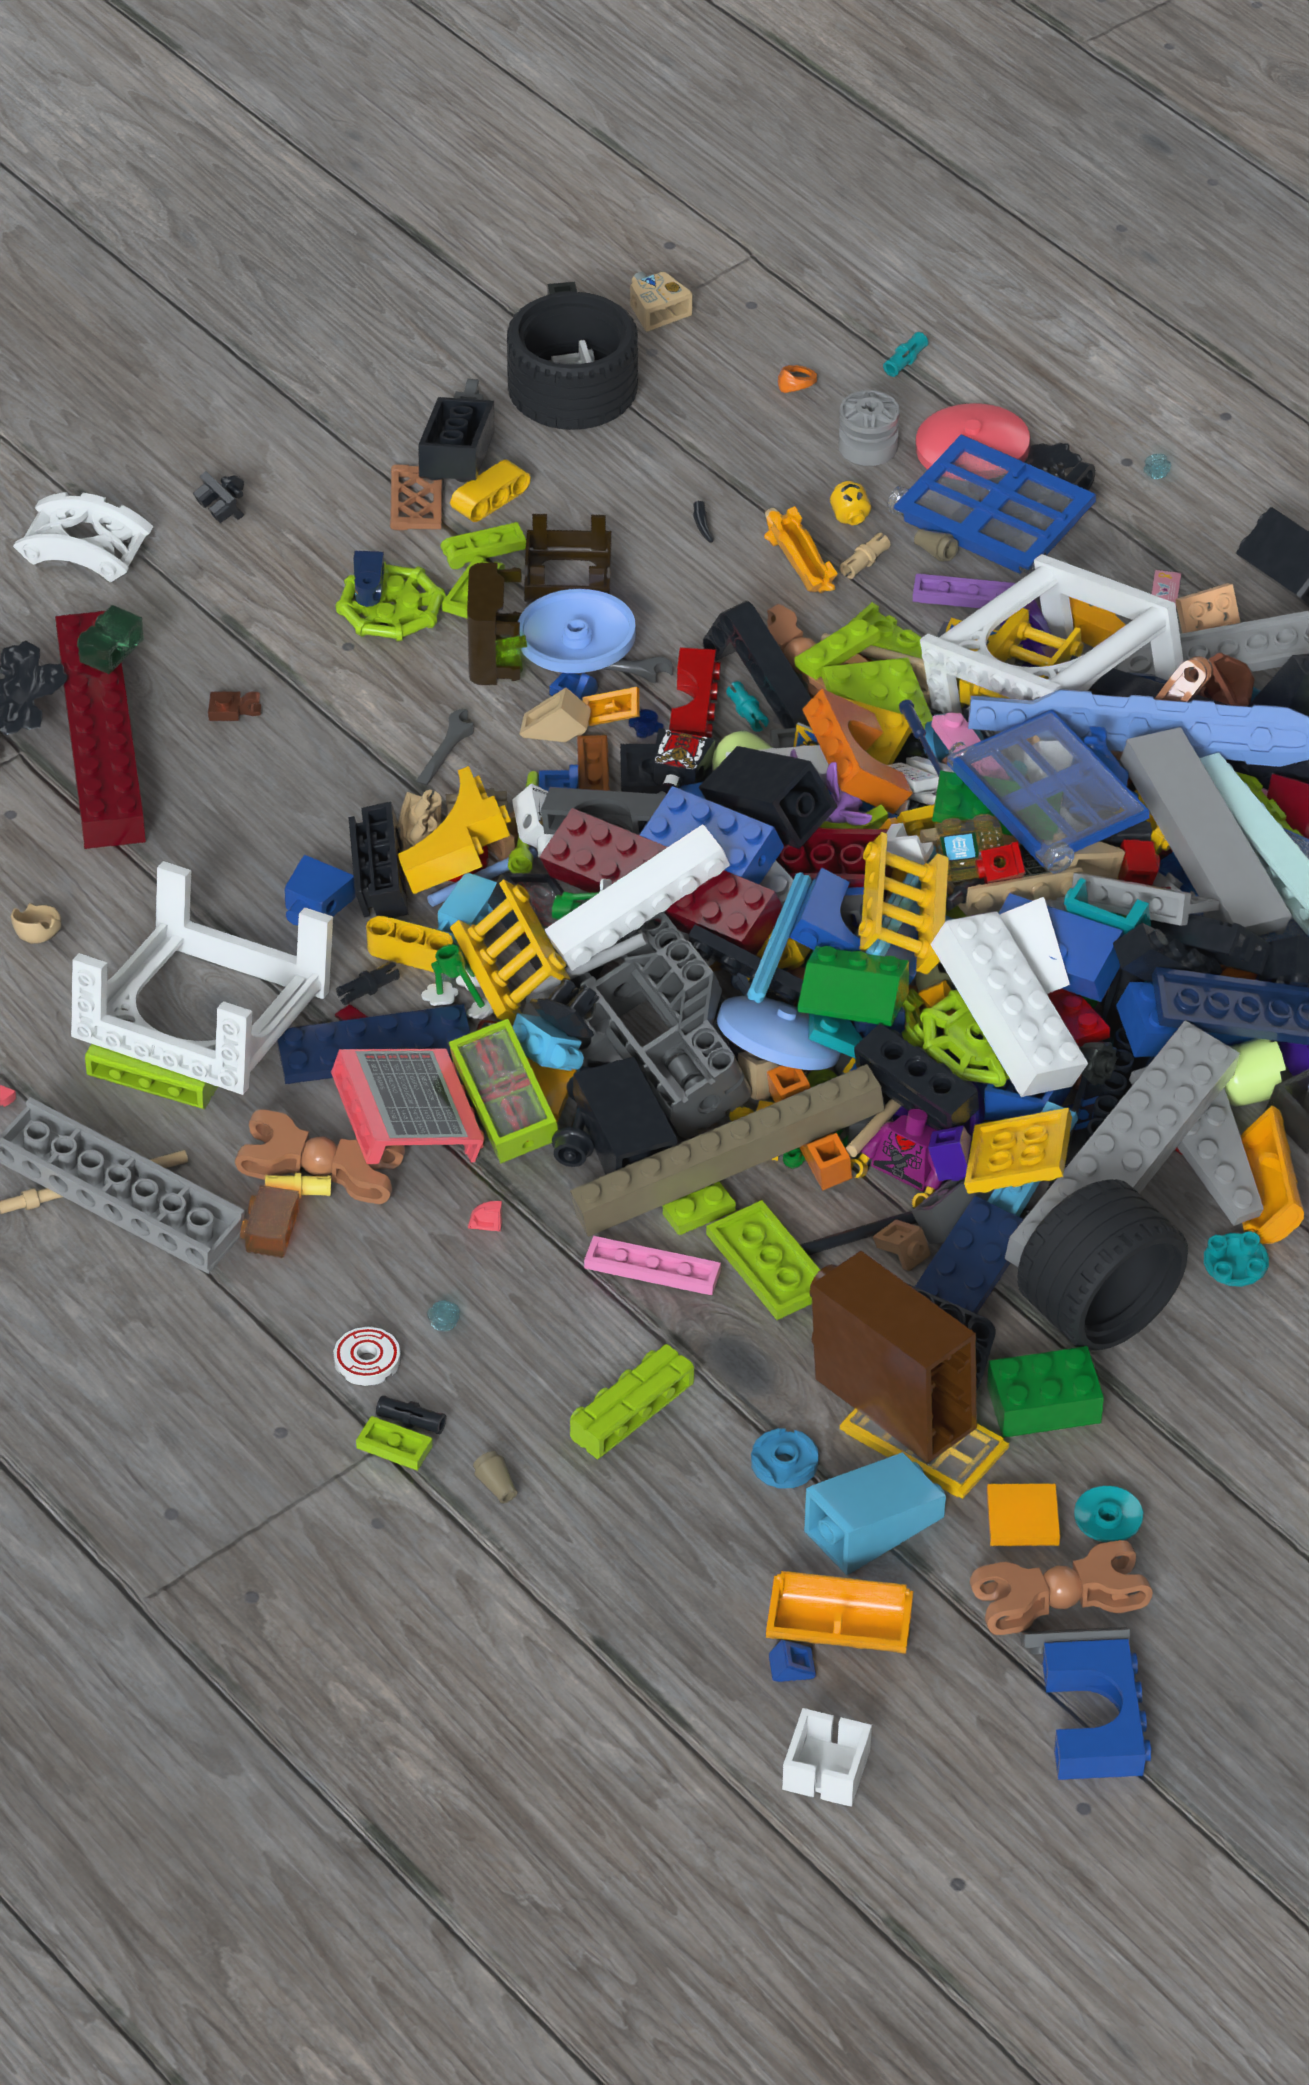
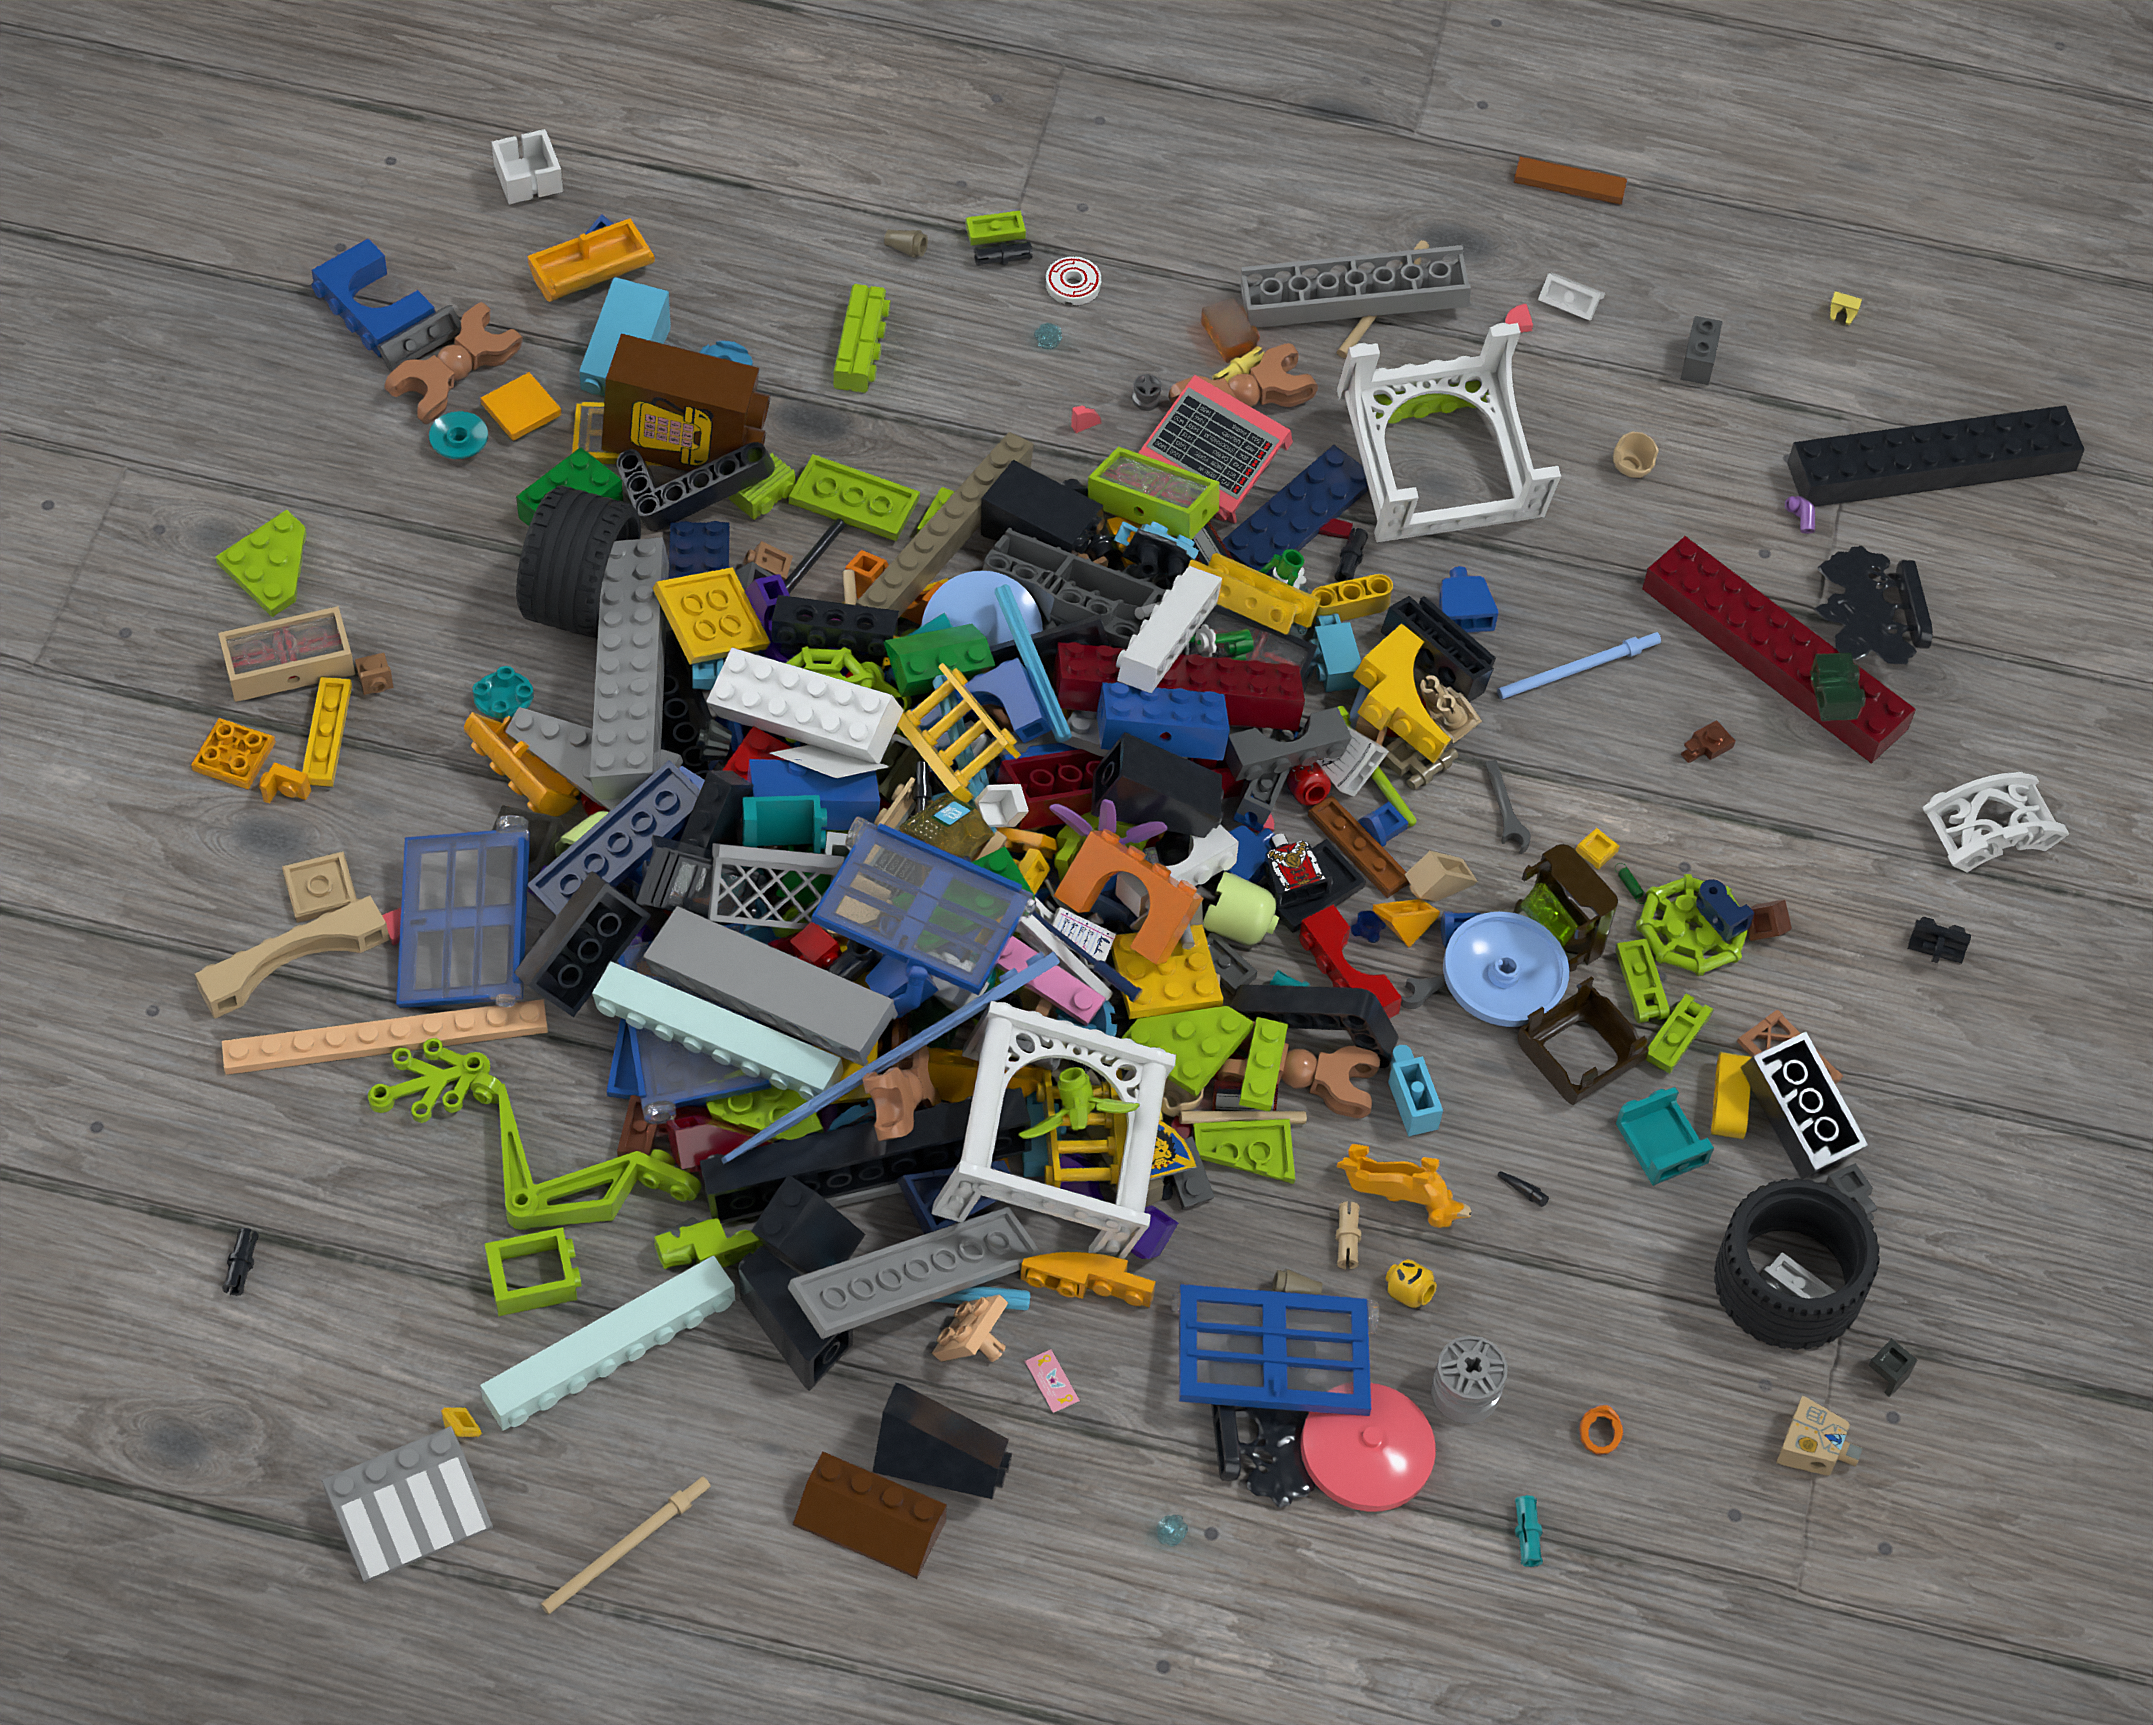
camera: 140 degrees right, 10 degrees up
(212, 798) = (1629, 647): none -> light blue bar
(331, 571) = (1769, 920): none -> copper panel
(404, 686) = (1597, 848): none -> yellow tile
(405, 651) = (1630, 882): none -> green piece
(406, 1209) = (1151, 387): none -> flat silver wheel
(570, 491) = (1662, 1136): none -> teal panel
(652, 1265) = (934, 446): bright pink plate -> none
(734, 586) = (1414, 1092): none -> medium azure brick
(956, 591) = (1215, 1247): medium lavender plate -> none
(1013, 864) = (902, 809): red brick -> none
(1033, 634) = (1077, 1102): none -> lime plant
(1230, 682) = (890, 1230): copper slope -> none

